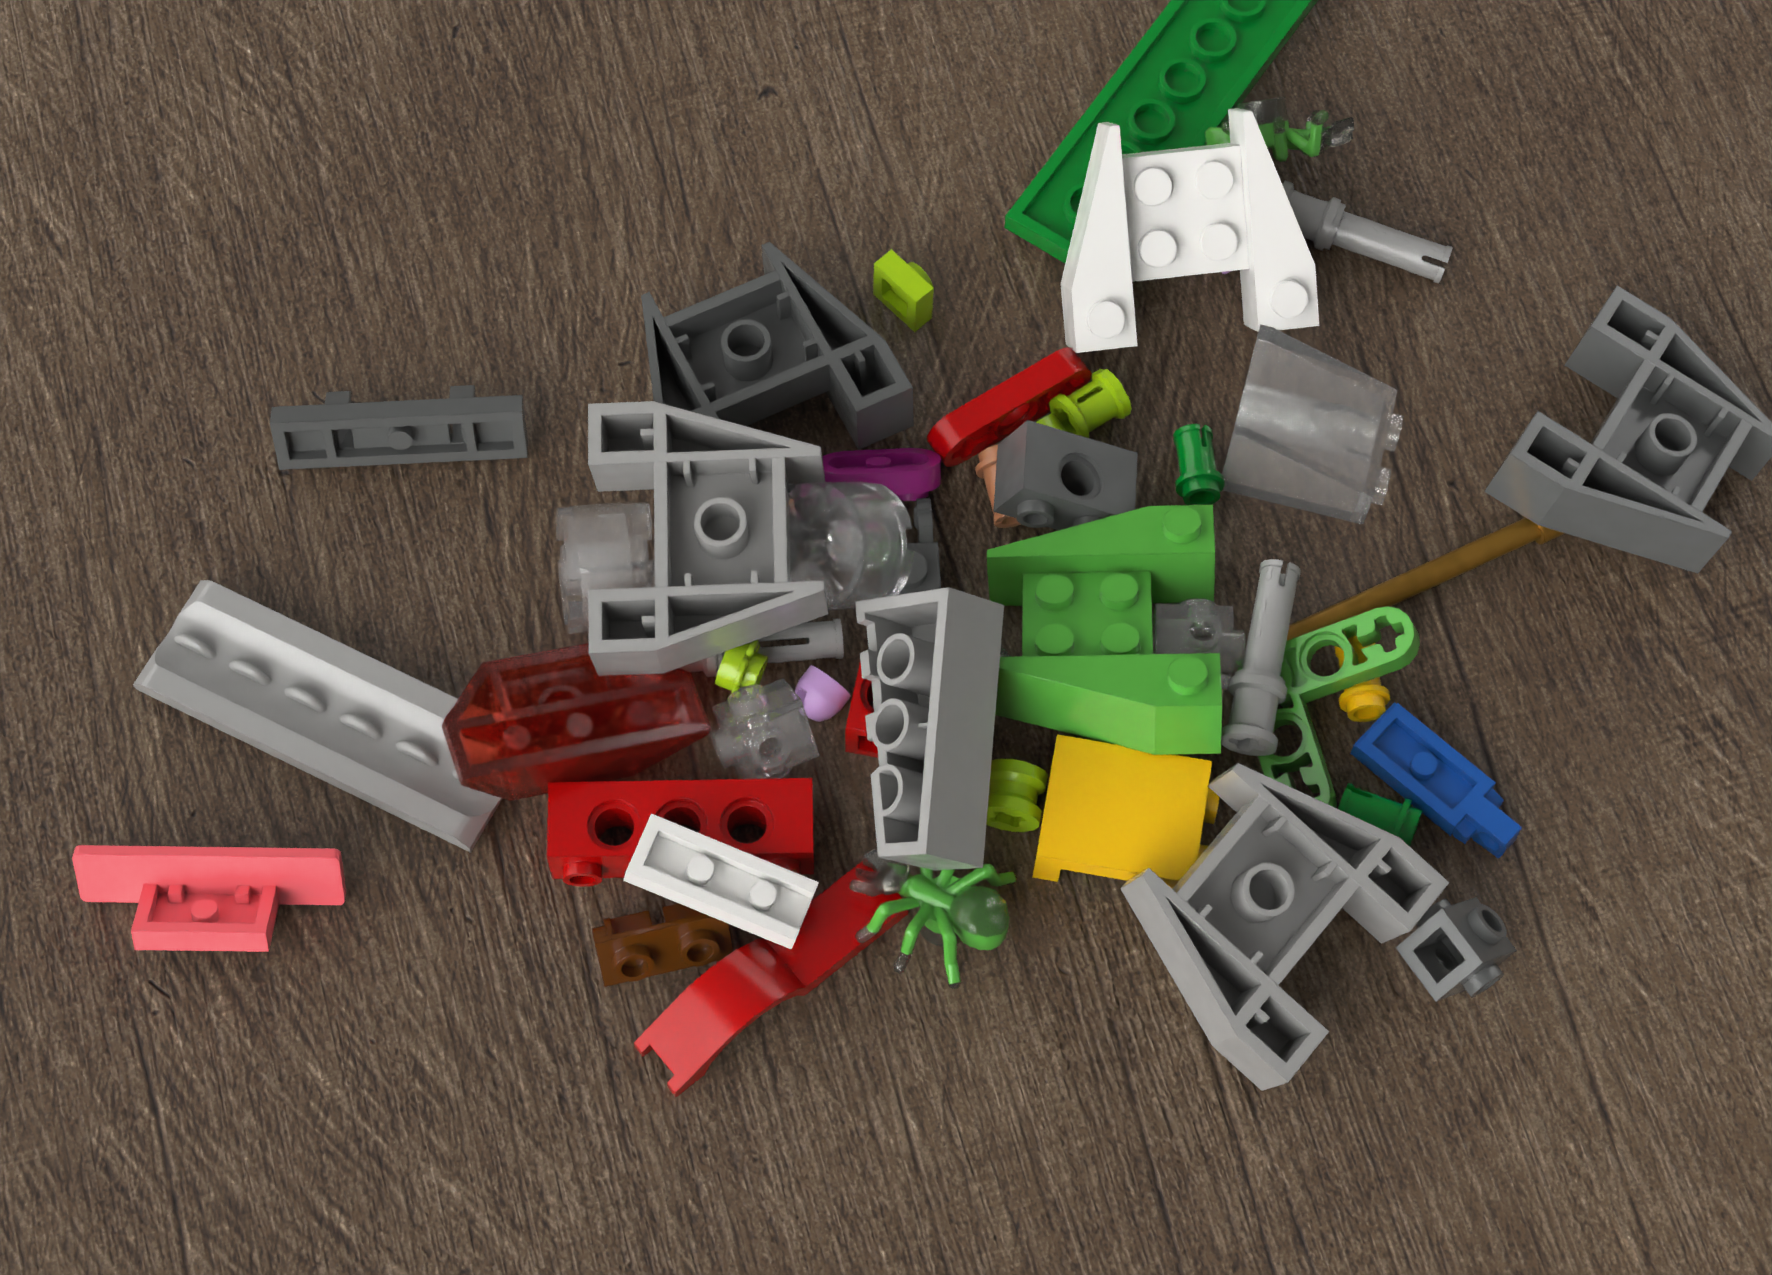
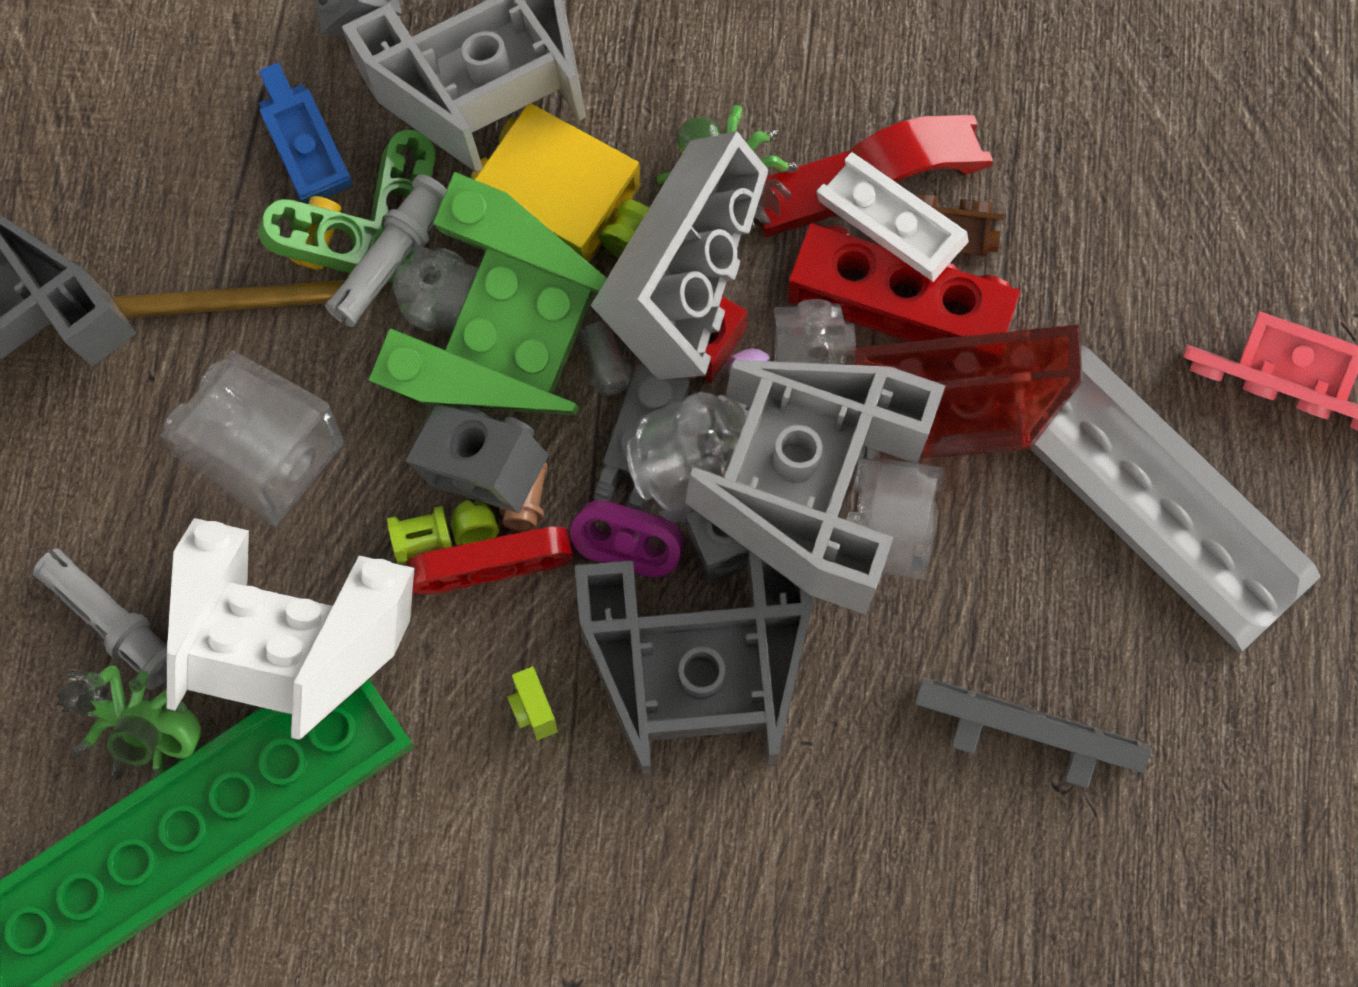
camera: 155 degrees left, 5 degrees up
(1198, 478) = (355, 453): green pin -> none
(1382, 812) = (357, 126): green pin -> none

